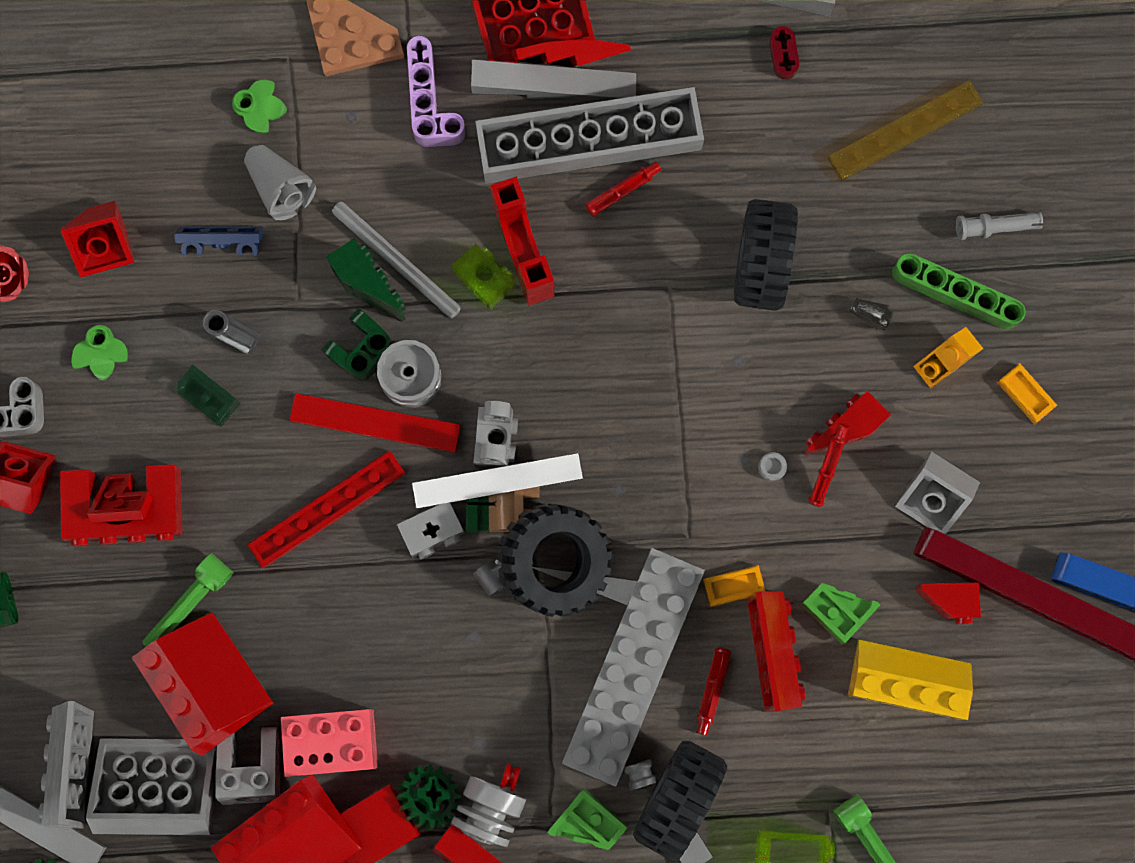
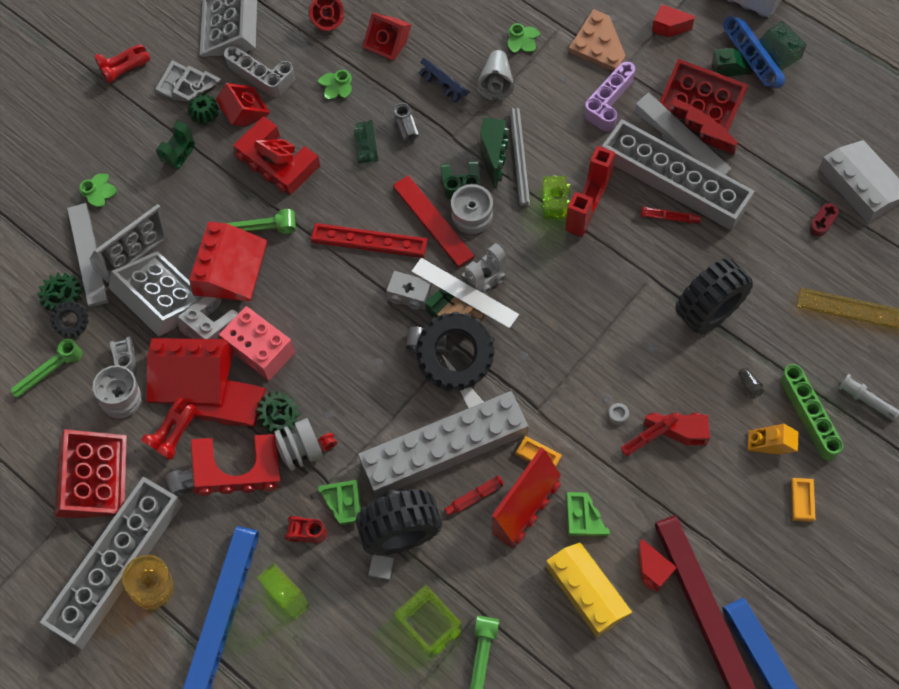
camera: 50 degrees right, 15 degrees down
(938, 494) = (698, 504): light grey slope -> none

